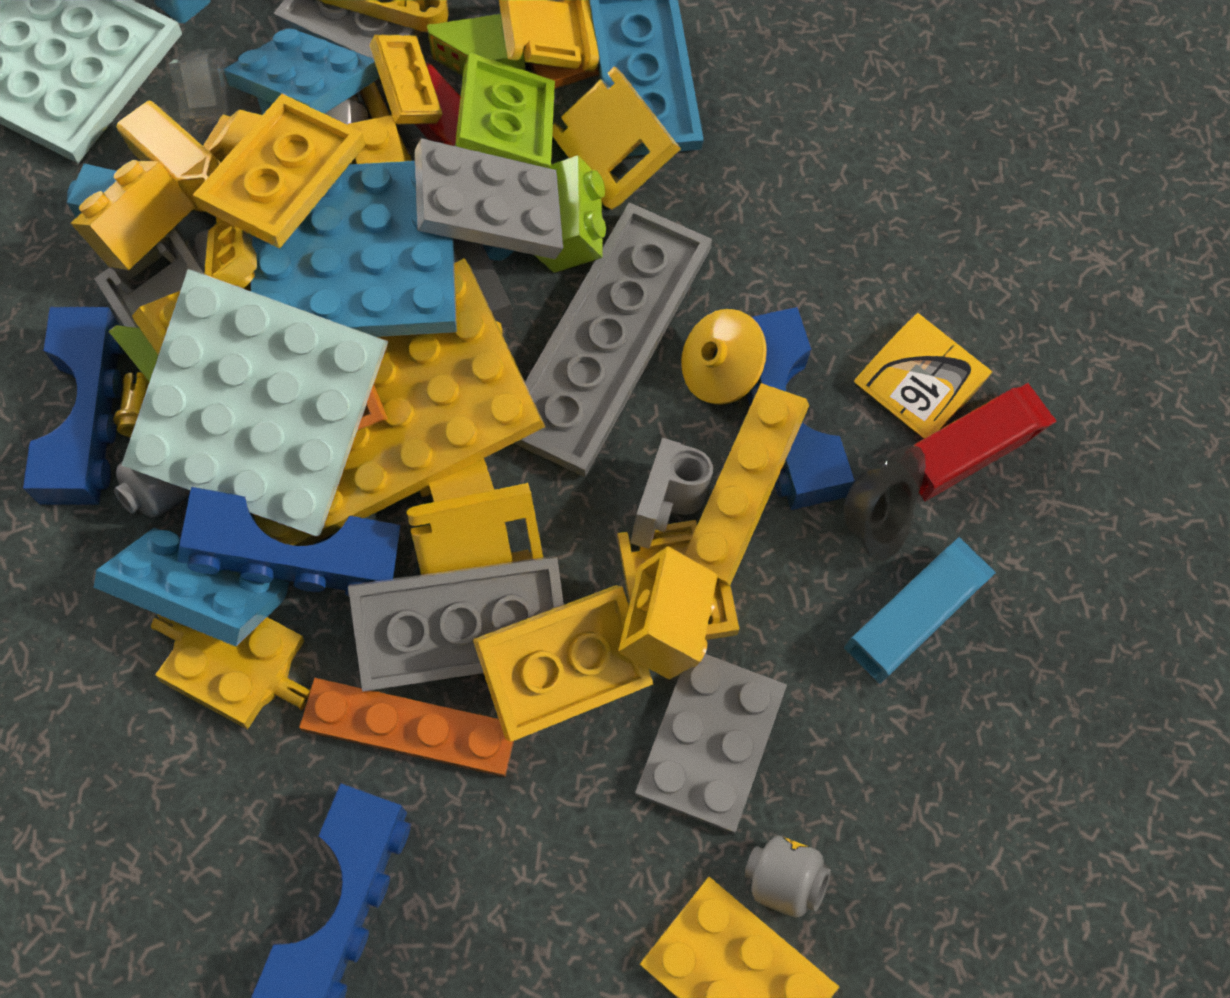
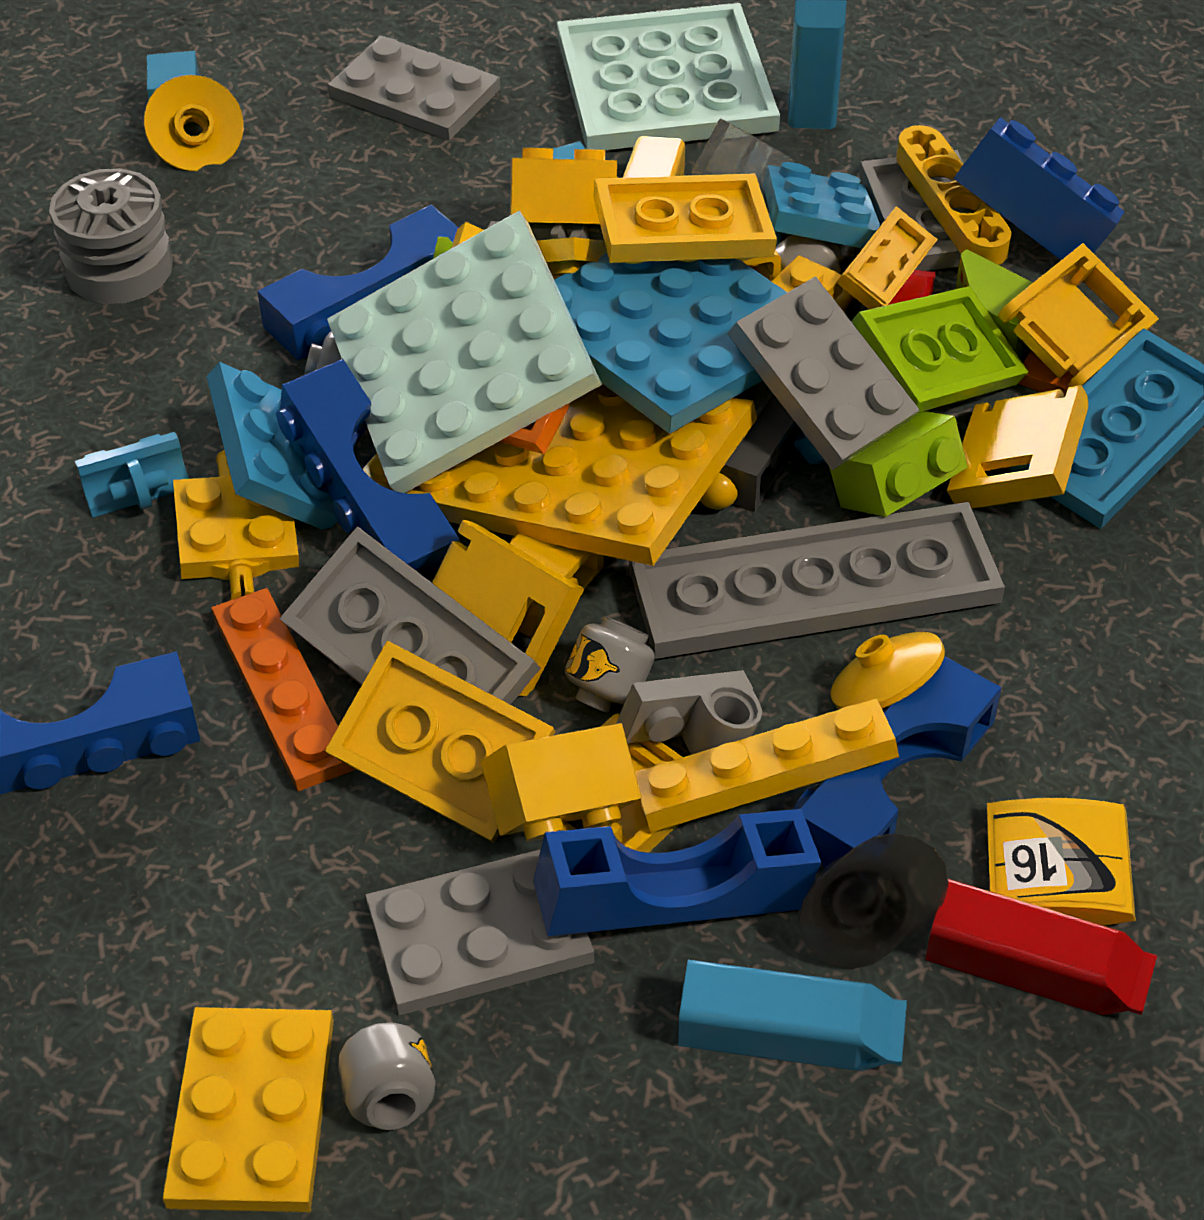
camera: 55 degrees right, 20 degrees down
(121, 700) = (131, 474): none -> dark azure hips
(581, 509) = (608, 662): none -> light grey head
(788, 600) = (749, 868): none -> blue arch

